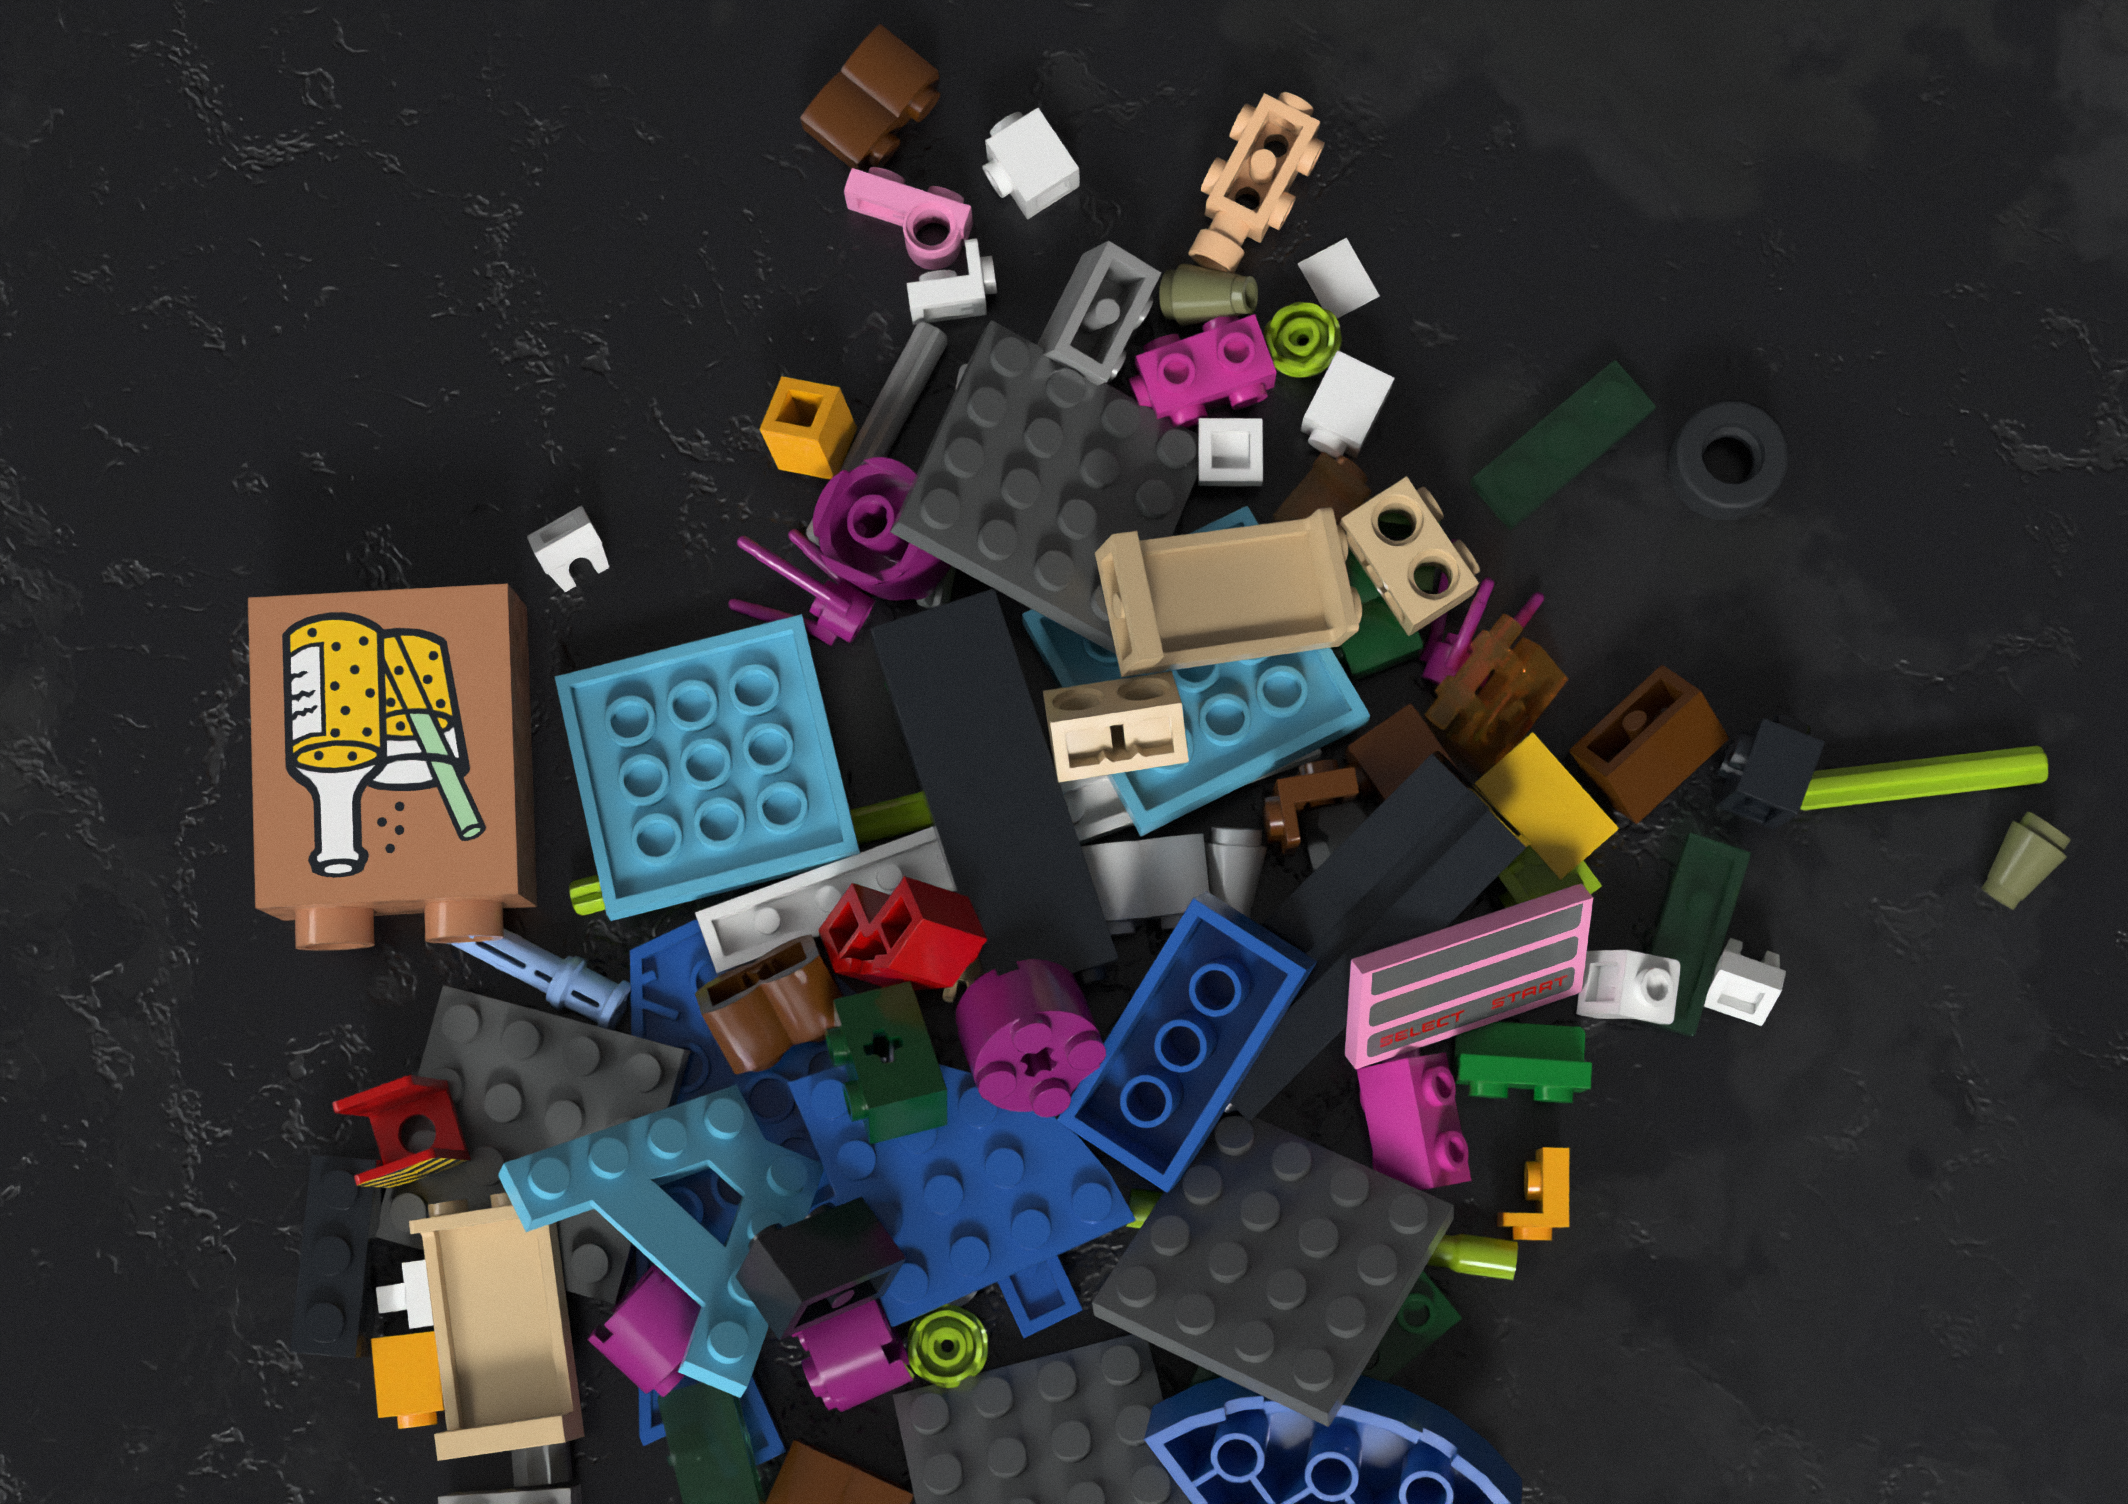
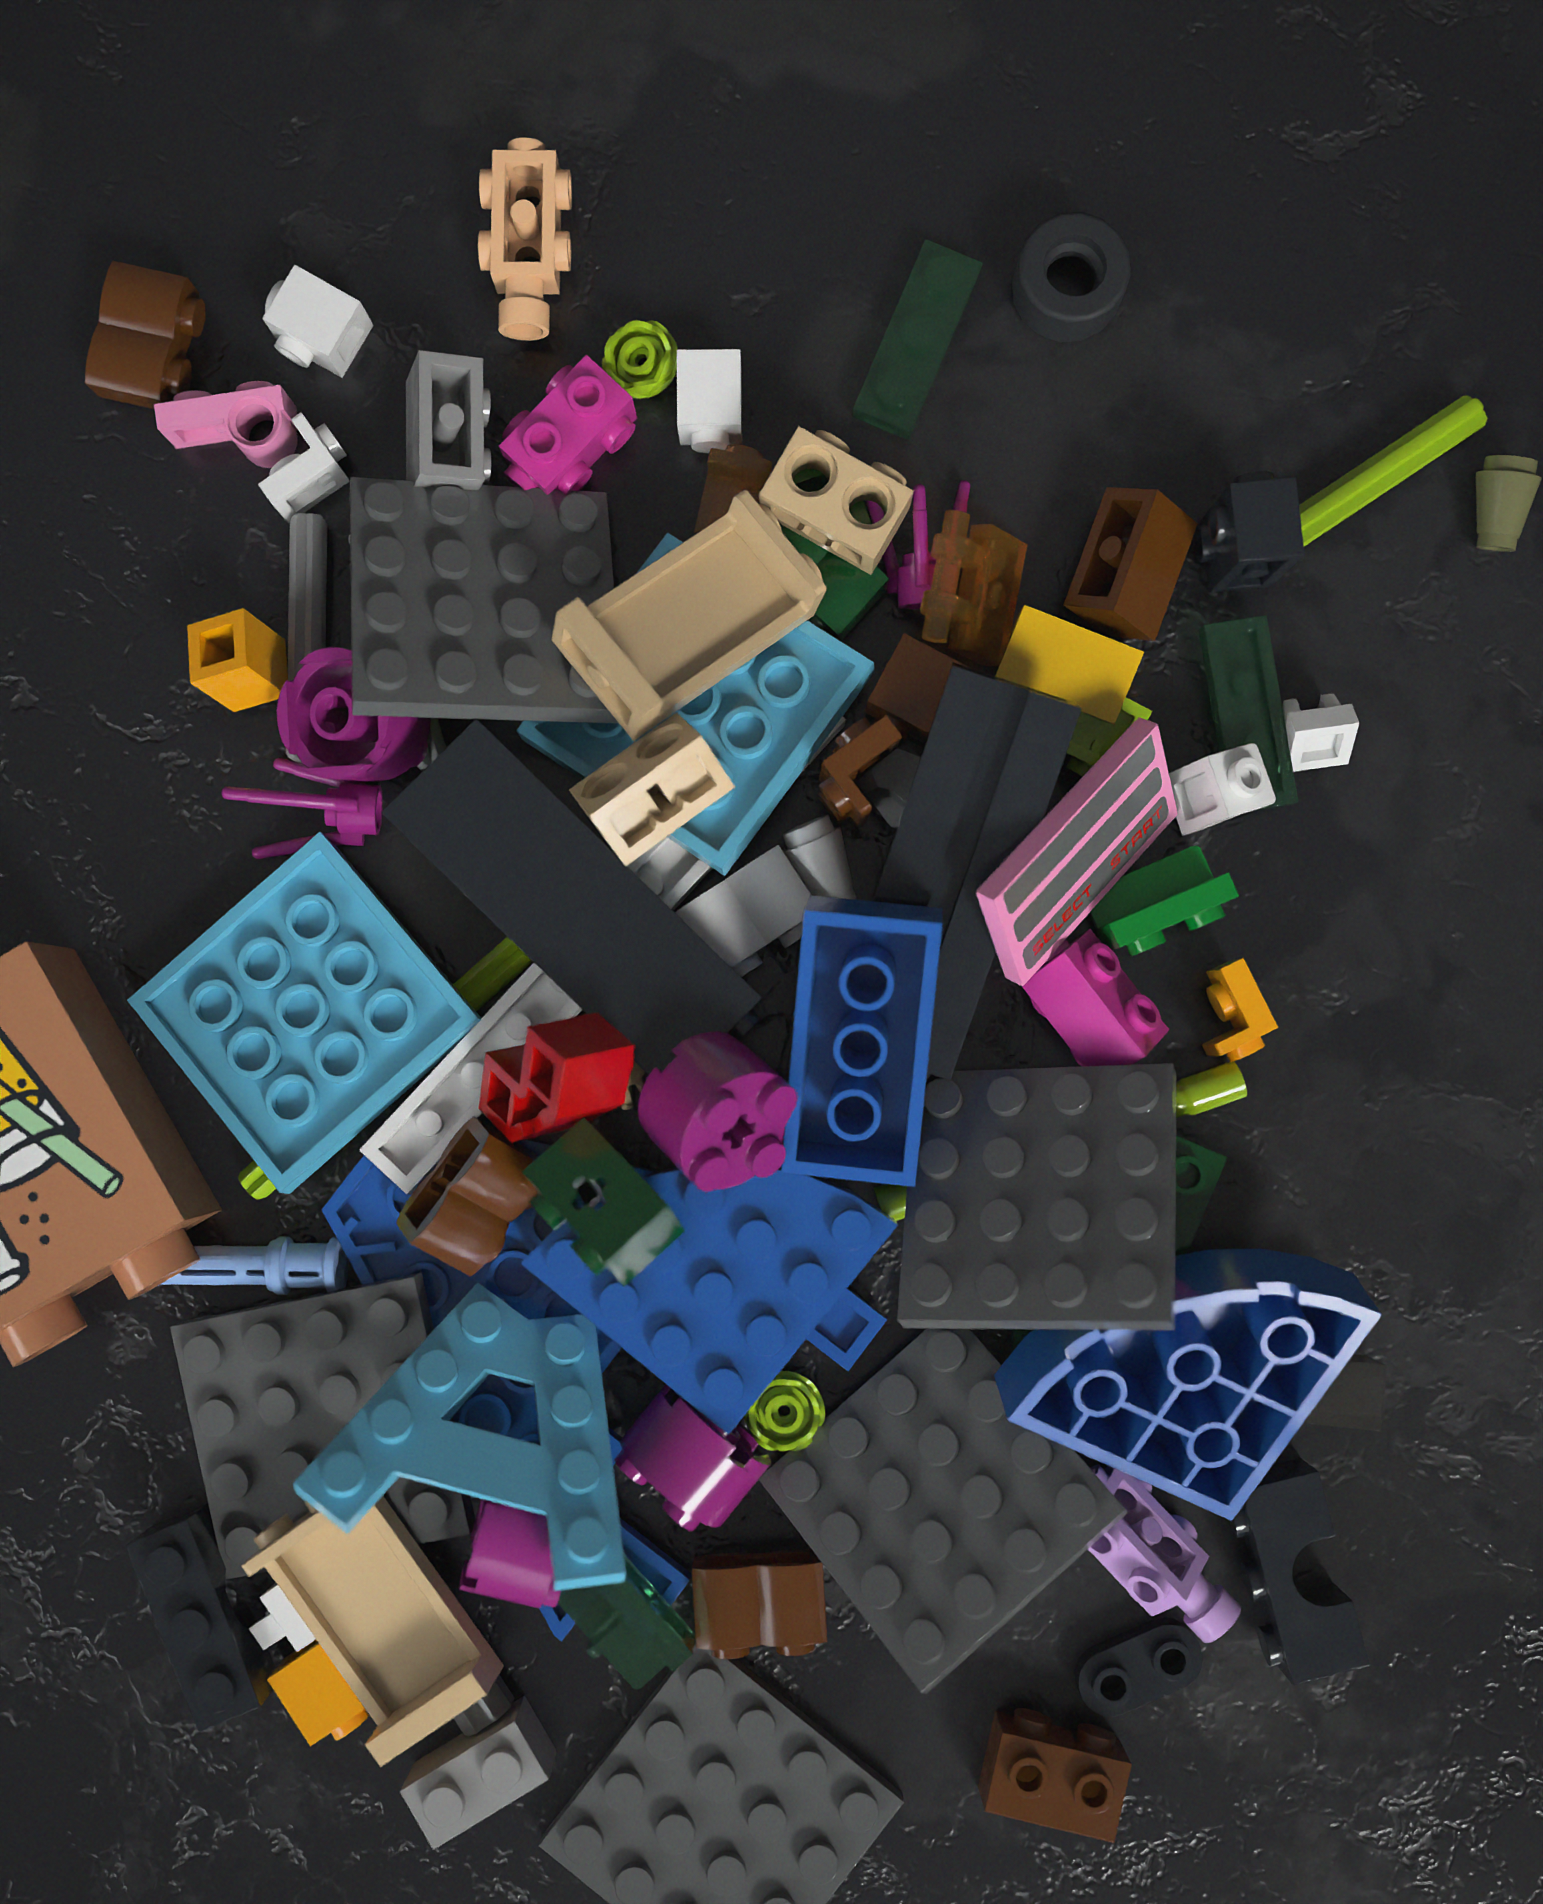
camera: 30 degrees left, 5 degrees up
(388, 1111) = (178, 1467): red piece -> none
(565, 541) = (74, 872): white tile -> none
(819, 1266) = (633, 1424): black brick -> none
(1202, 294) = (529, 362): olive cone -> none
(1230, 452) = (628, 491): white tile -> none
(1338, 279) = (645, 291): white sticker -> none

